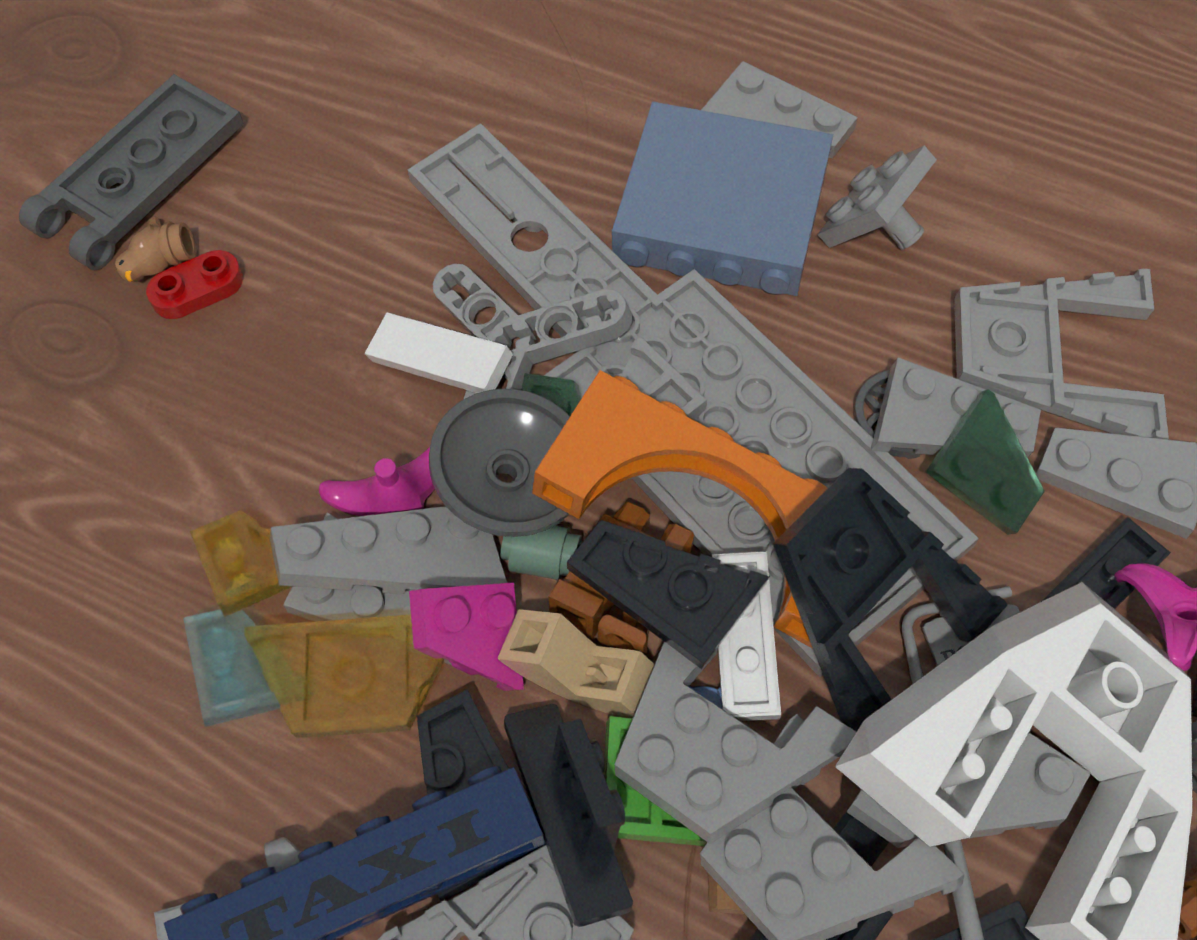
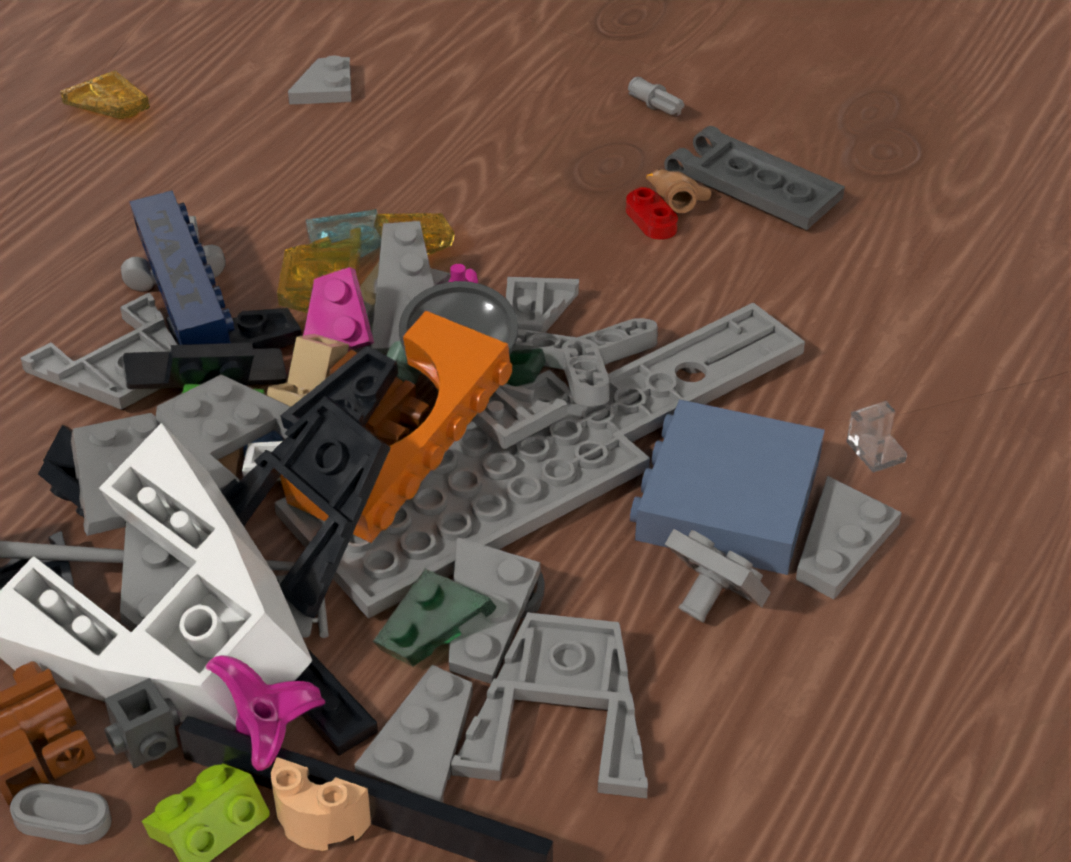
camera: 90 degrees right, 20 degrees down
(395, 404) = (540, 300): none -> light grey wing
(439, 353) = (570, 317): white tile -> none
(633, 79) = (871, 437): none -> clear panel

